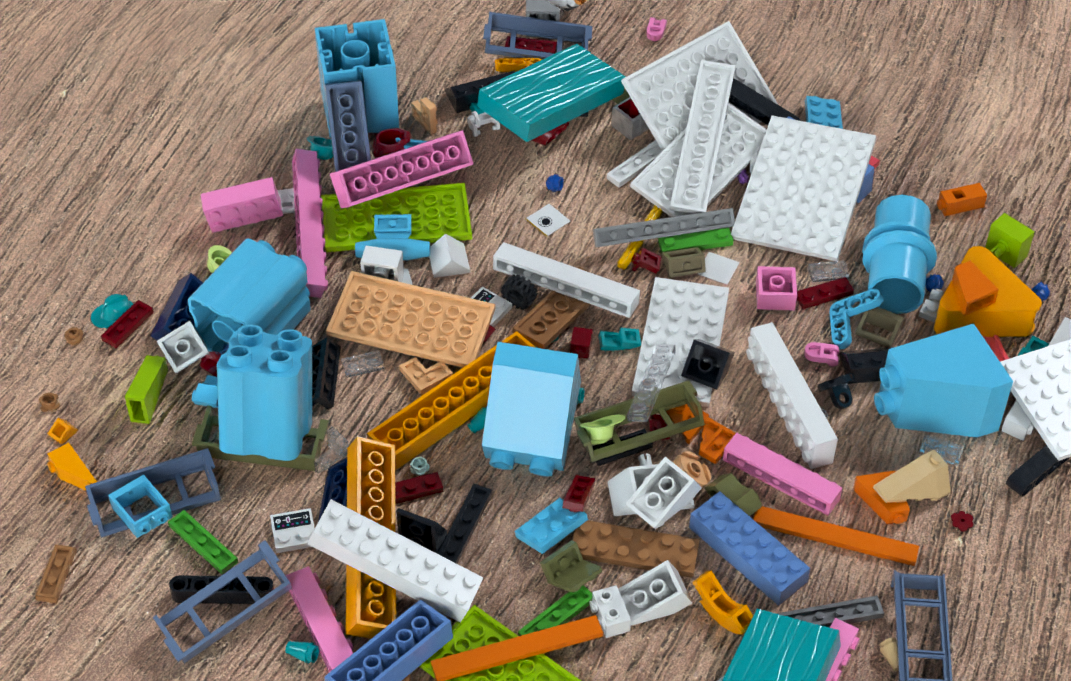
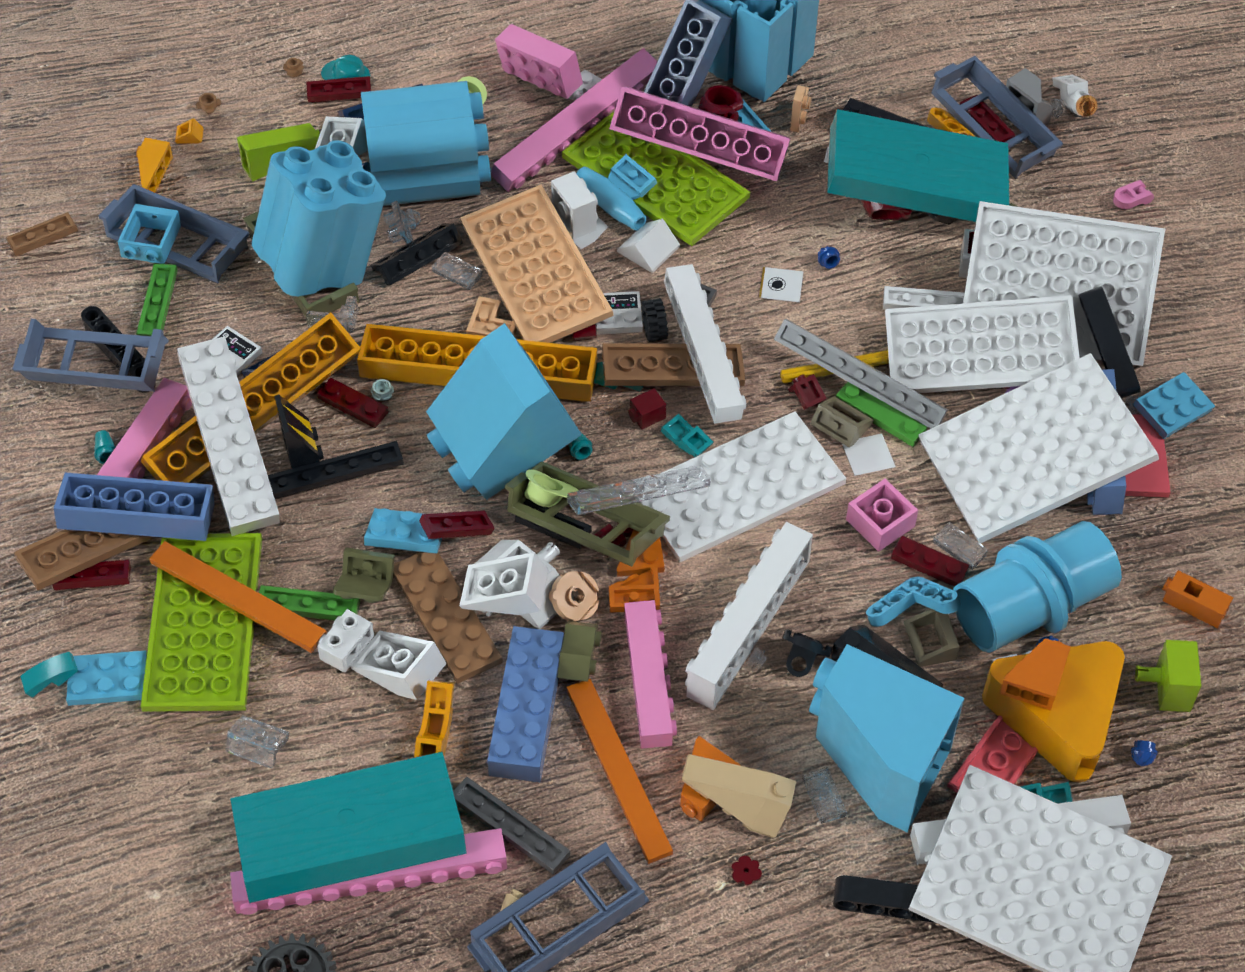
camera: 50 degrees right, 5 degrees up
(702, 137) = (1000, 319): white plate -> none
(707, 363) = (717, 519): black slope -> none
(815, 353) = (839, 602): bright pink plate -> none

